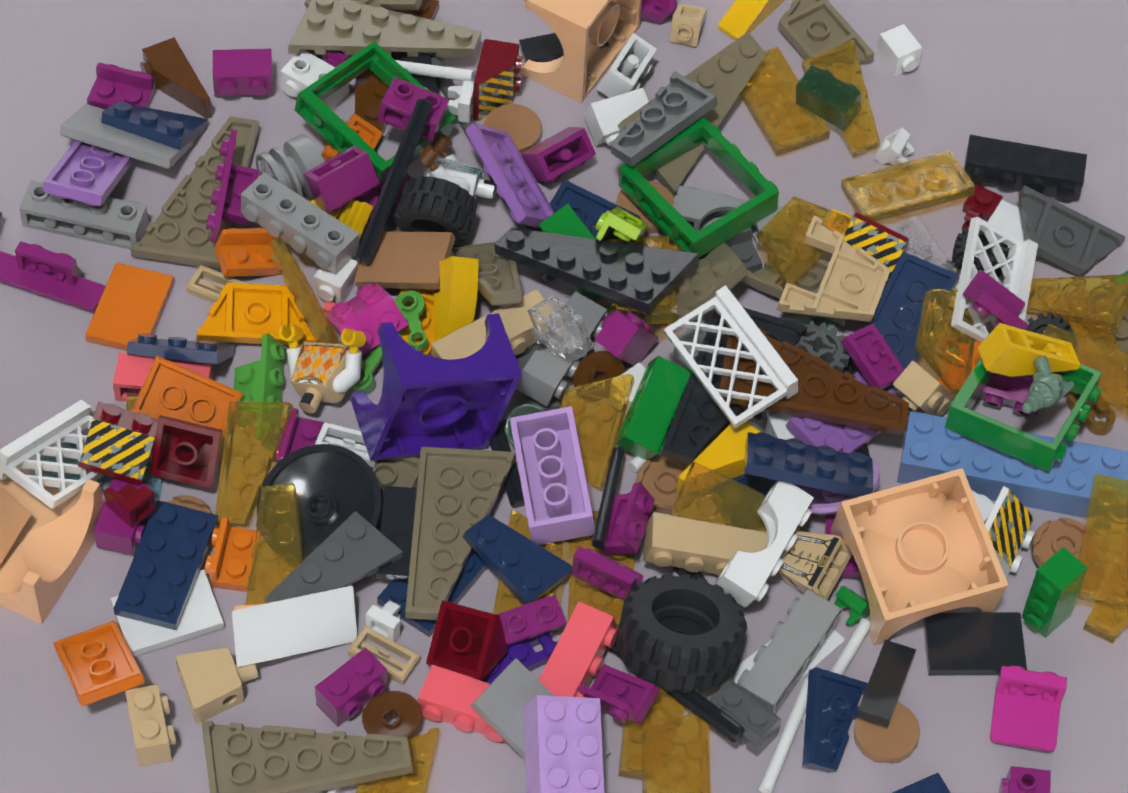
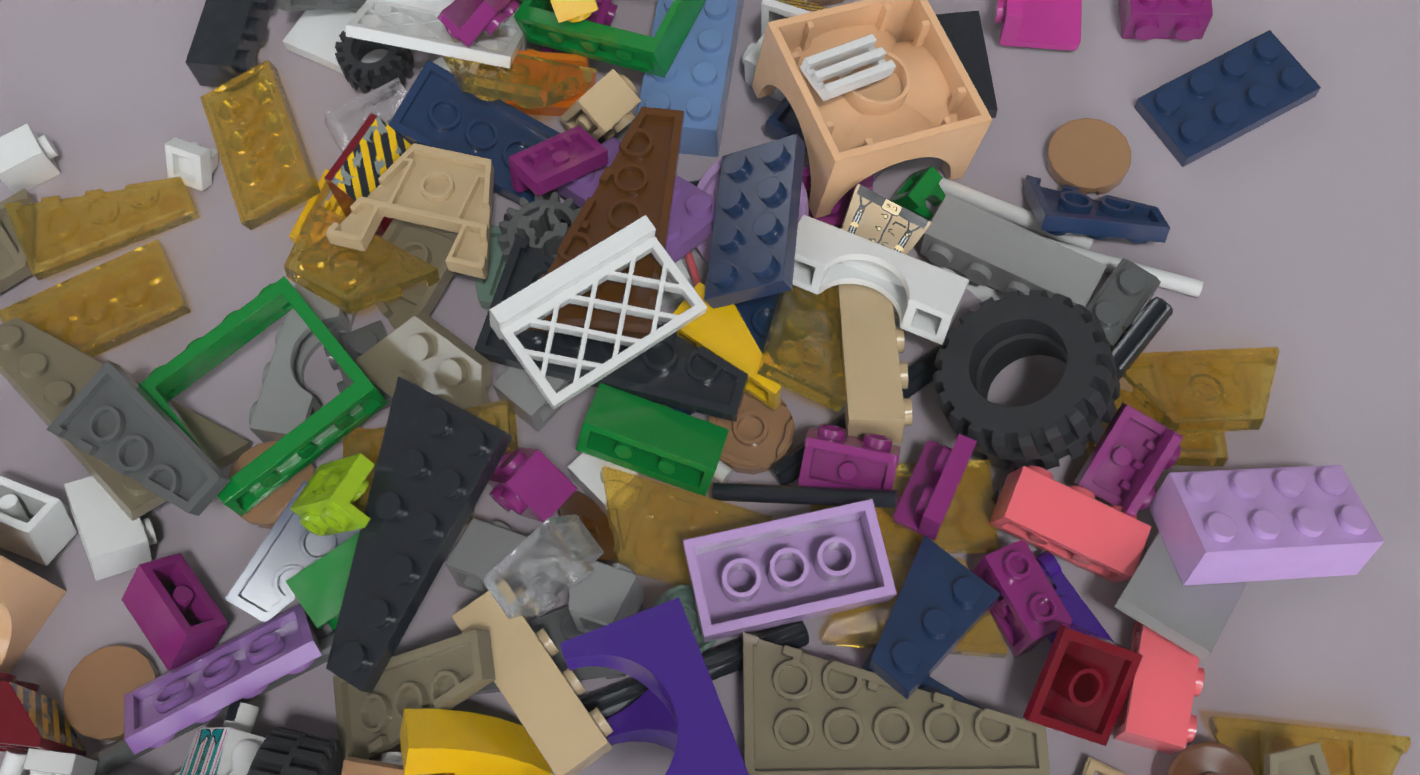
camera: 85 degrees left, 10 degrees up
(828, 97) = (107, 230): clear green brick -> none
(886, 683) = (1035, 153): black tile -> none
(933, 512) = (841, 62): none -> white tile
(980, 205) = (296, 67): dark red plate -> none

